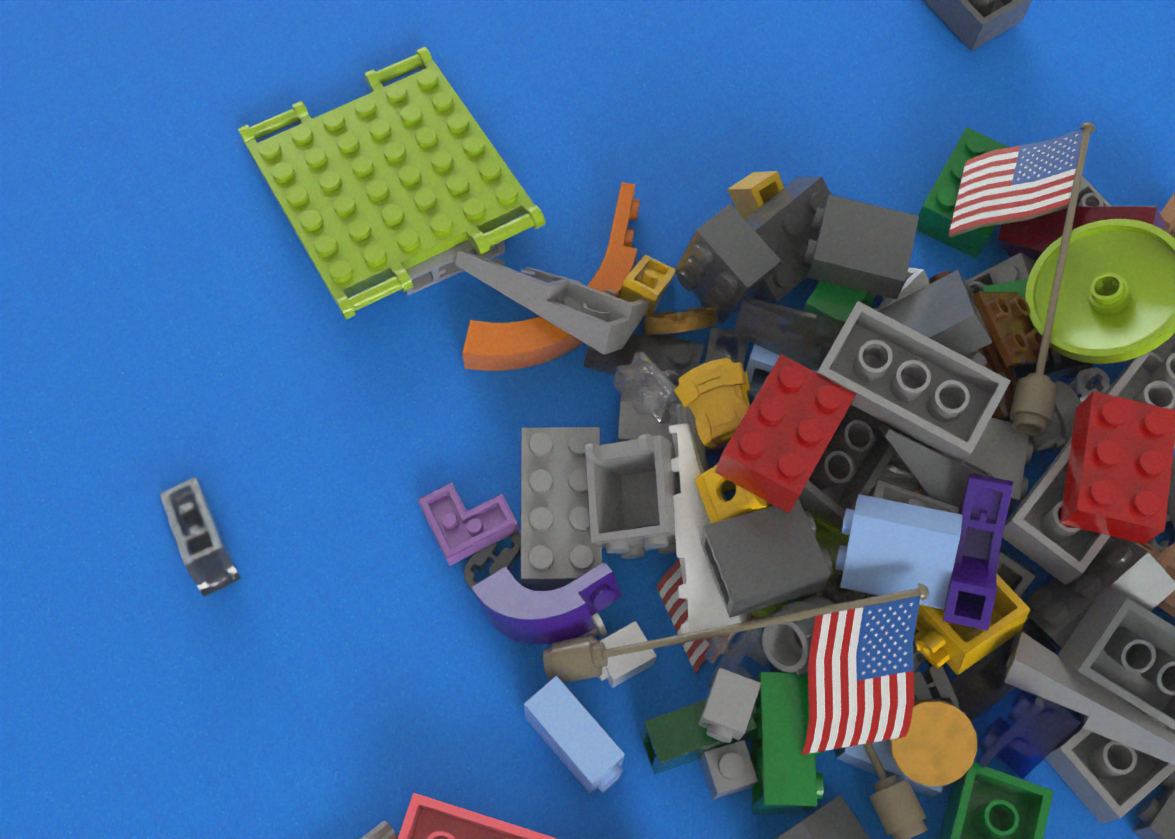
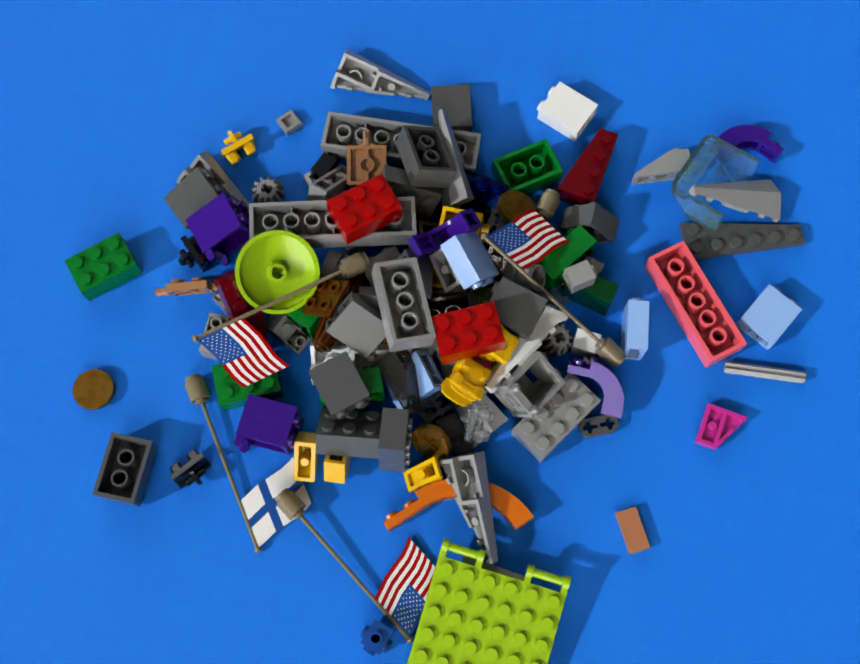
camera: 130 degrees left, 5 degrees up
(199, 537) = (707, 547): clear smoke slope -> none
(321, 468) = (632, 530): none -> nougat tile
(324, 721) = (717, 426): none -> dark pink wing
(464, 531) = (602, 447): medium lavender tile -> none
(511, 79) = (369, 632): none -> blue brick
(544, 161) = (404, 586): none -> flag
(657, 612) = (562, 343): none -> light grey gear
(783, 113) = (259, 505): none -> flag
(797, 162) = (305, 457): none -> yellow slope
(887, 158) = (268, 425): none -> dark purple container
(904, 55) = (190, 471): none -> black hips
(1112, 38) = (93, 389): none -> pearl gold tile

